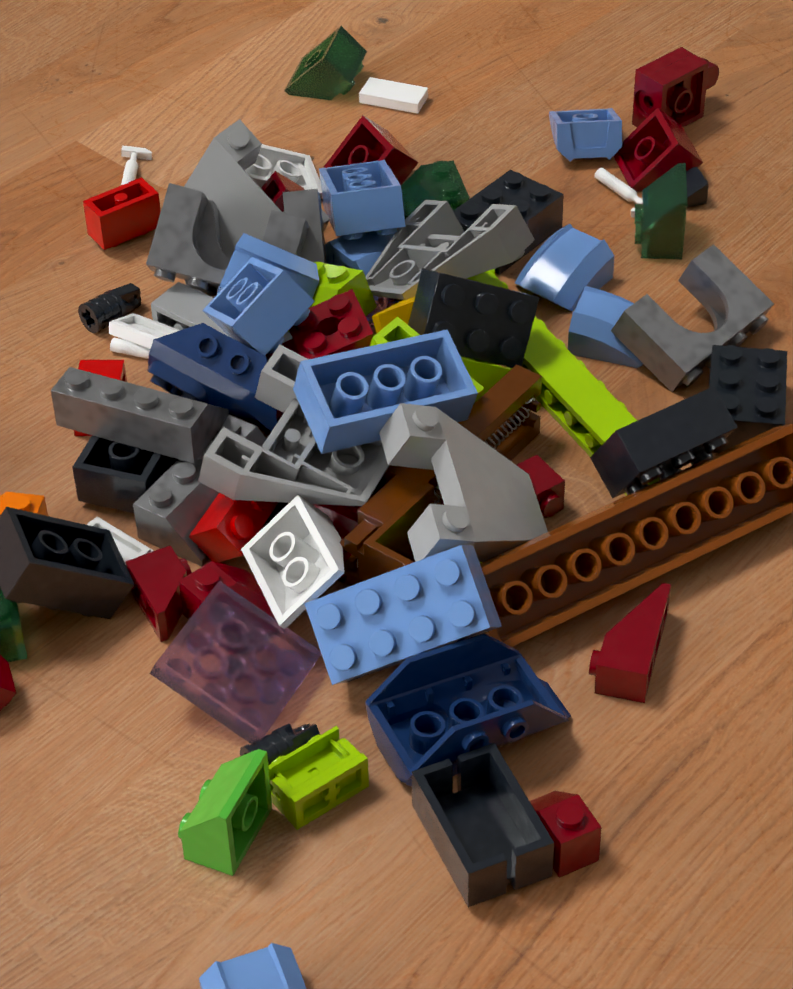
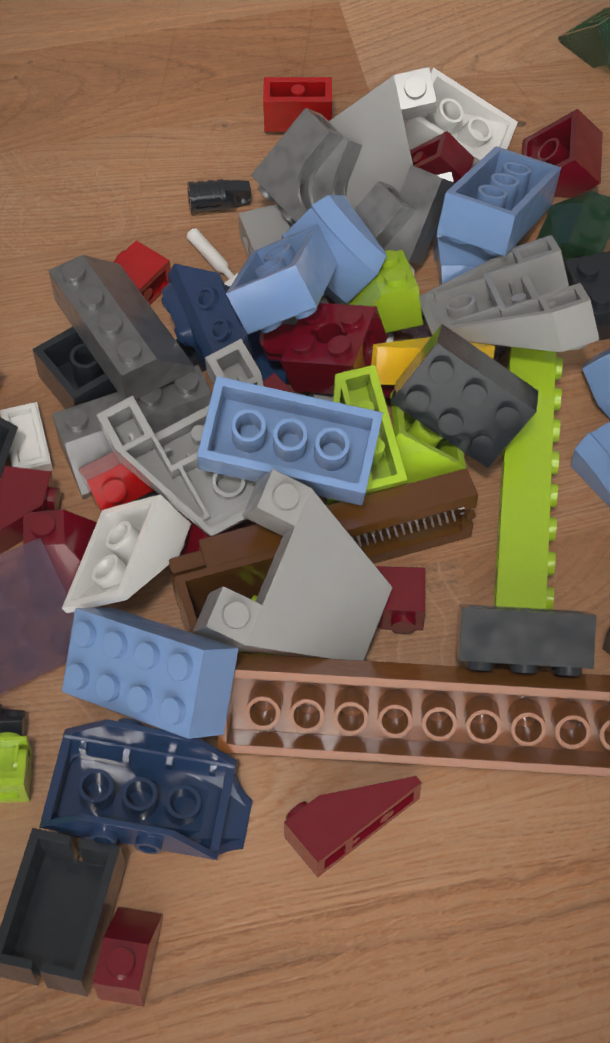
camera: 35 degrees right, 15 degrees up
(131, 165) = (357, 55): white piece -> none
(139, 329) = (222, 239): white tile -> none

